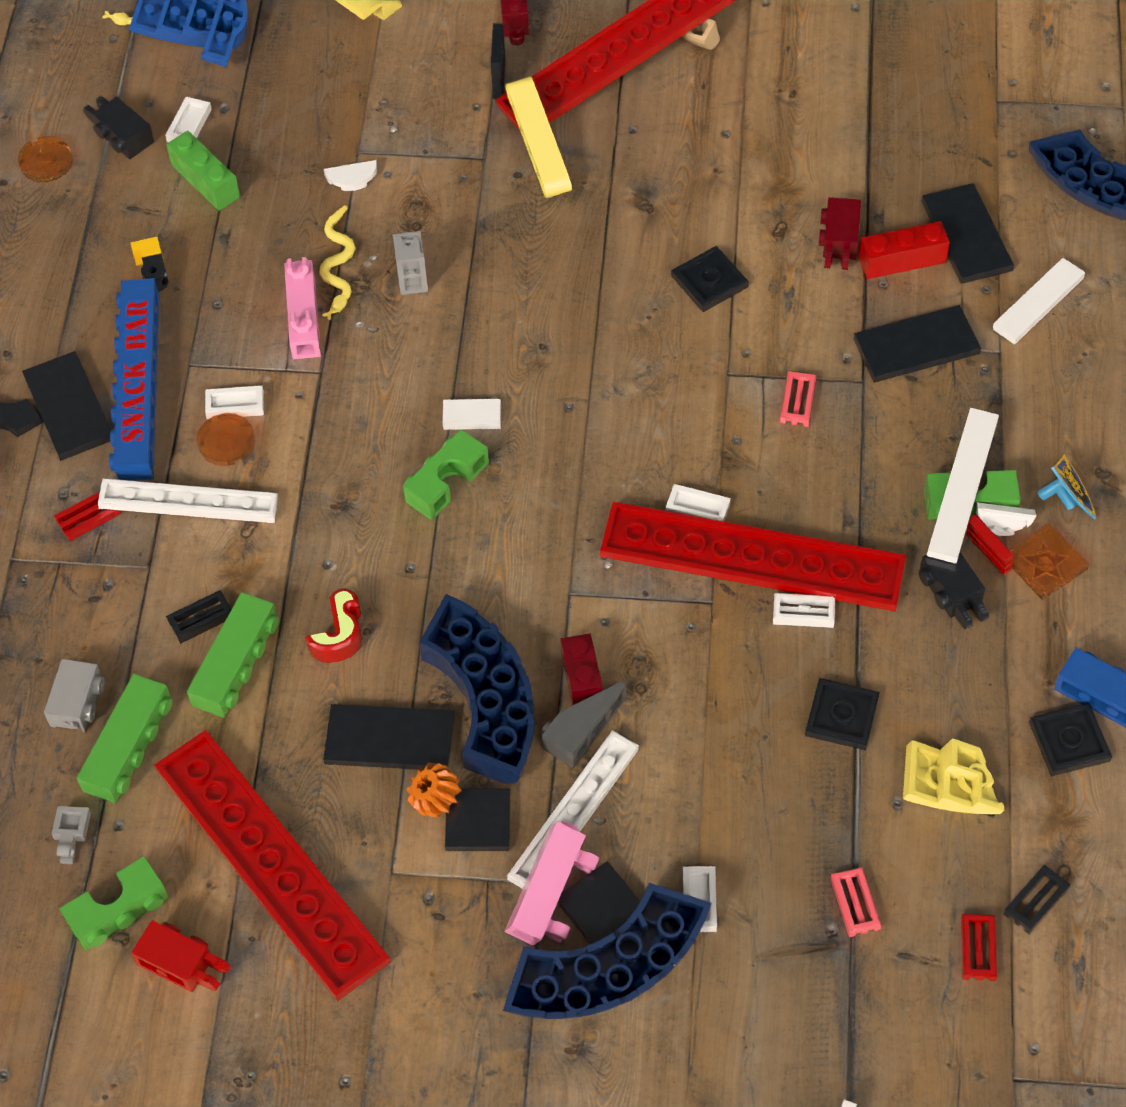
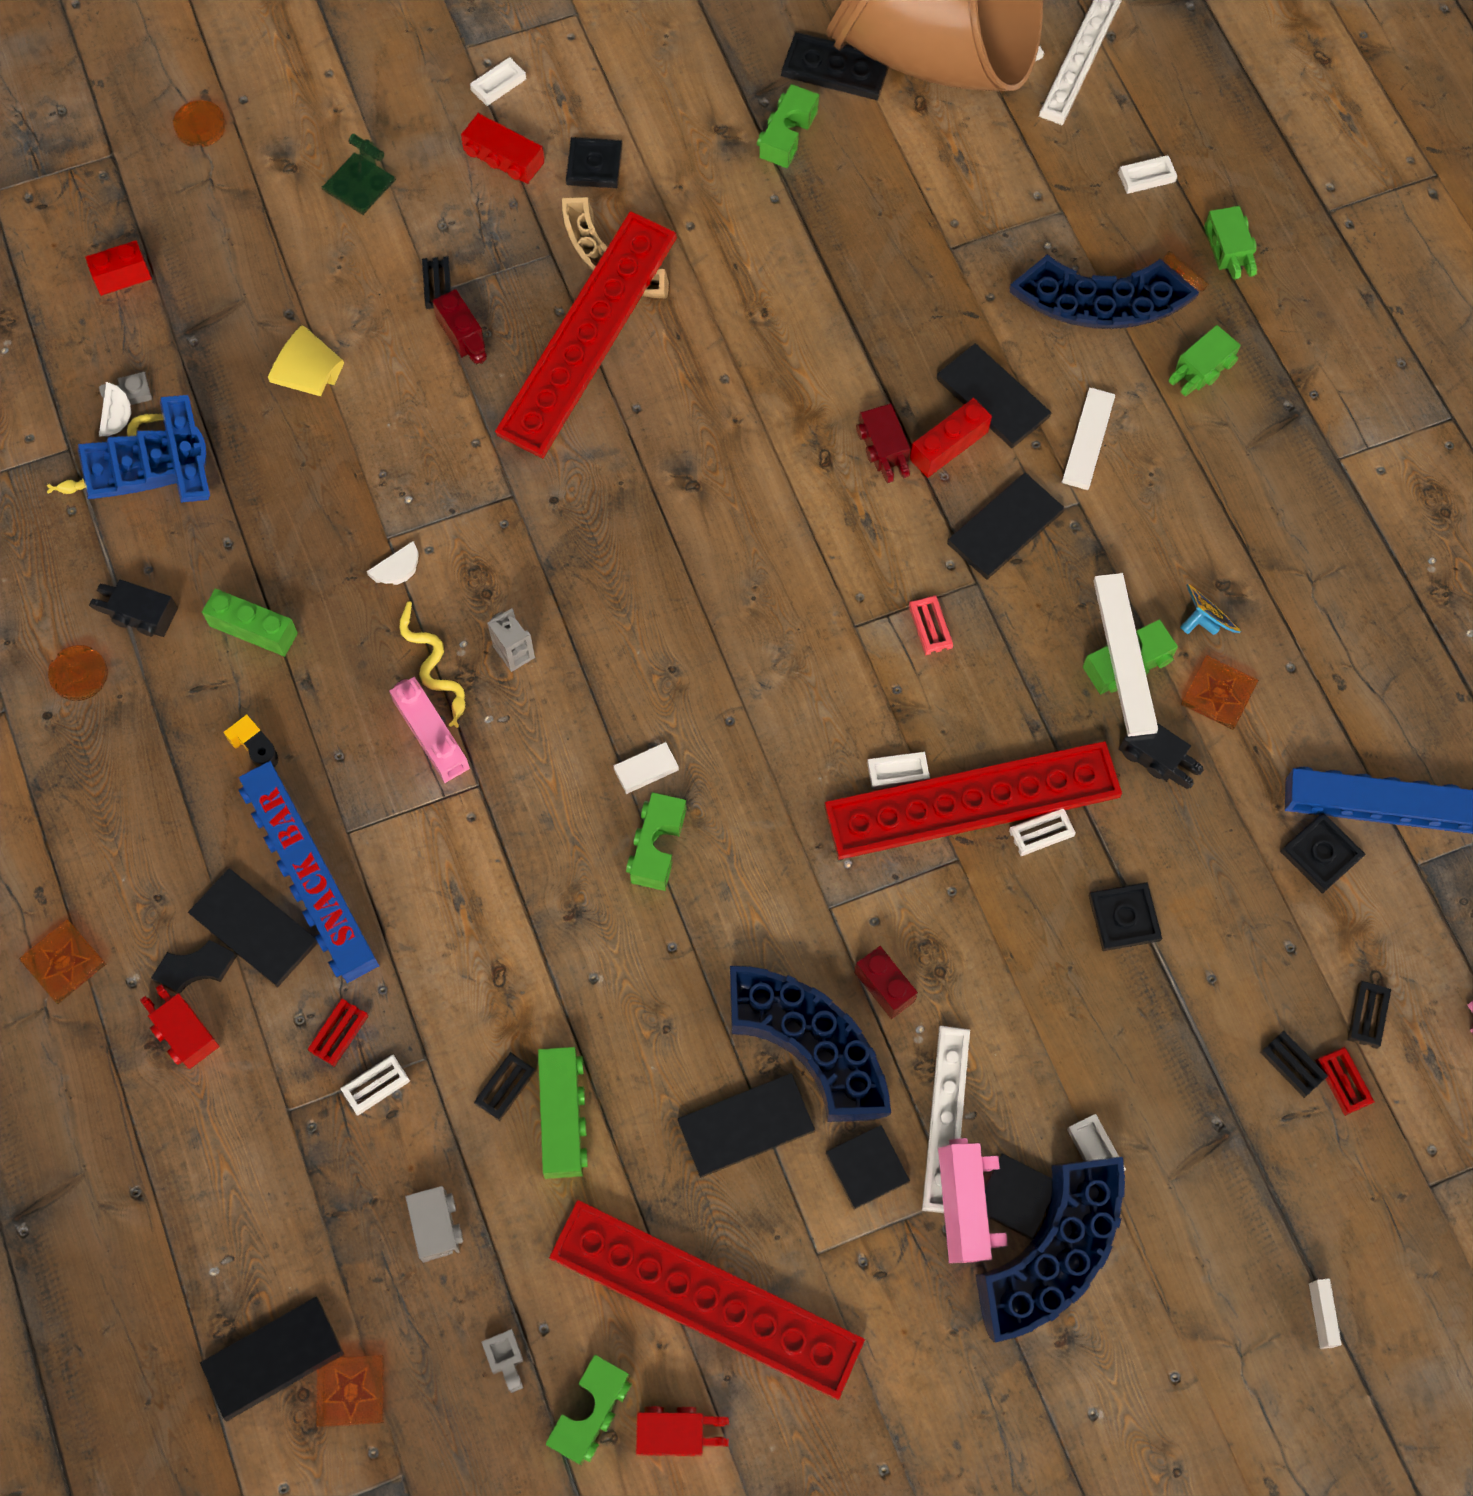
camera: 30 degrees left, 10 degrees up
(93, 572) = (380, 1095): none -> white tile
(125, 739) = (506, 1244): bright green brick -> none
(188, 500) = (428, 975): white tile -> none
(189, 117) = (201, 572): white tile -> none
(226, 439) = (428, 895): clear orange tile -> none
(235, 400) = (415, 853): white tile -> none
(347, 636) = (651, 1038): red animal -> none
(433, 789) = (809, 1152): orange gear -> none
(498, 60) = (479, 390): black tile -> none
(538, 137) = (560, 456): light yellow beam -> none
(579, 725) = (909, 1041): dark grey slope -> none
(709, 278) = (789, 536): black tile -> none
(862, 925) = (1215, 1093): coral tile -> none
(927, 885) = (1301, 1056): none -> black tile
(949, 778) = (1244, 936): light yellow slope -> none
(989, 544) = (1172, 699): red tile -> none
(1004, 519) = (1169, 669): white tile -> none

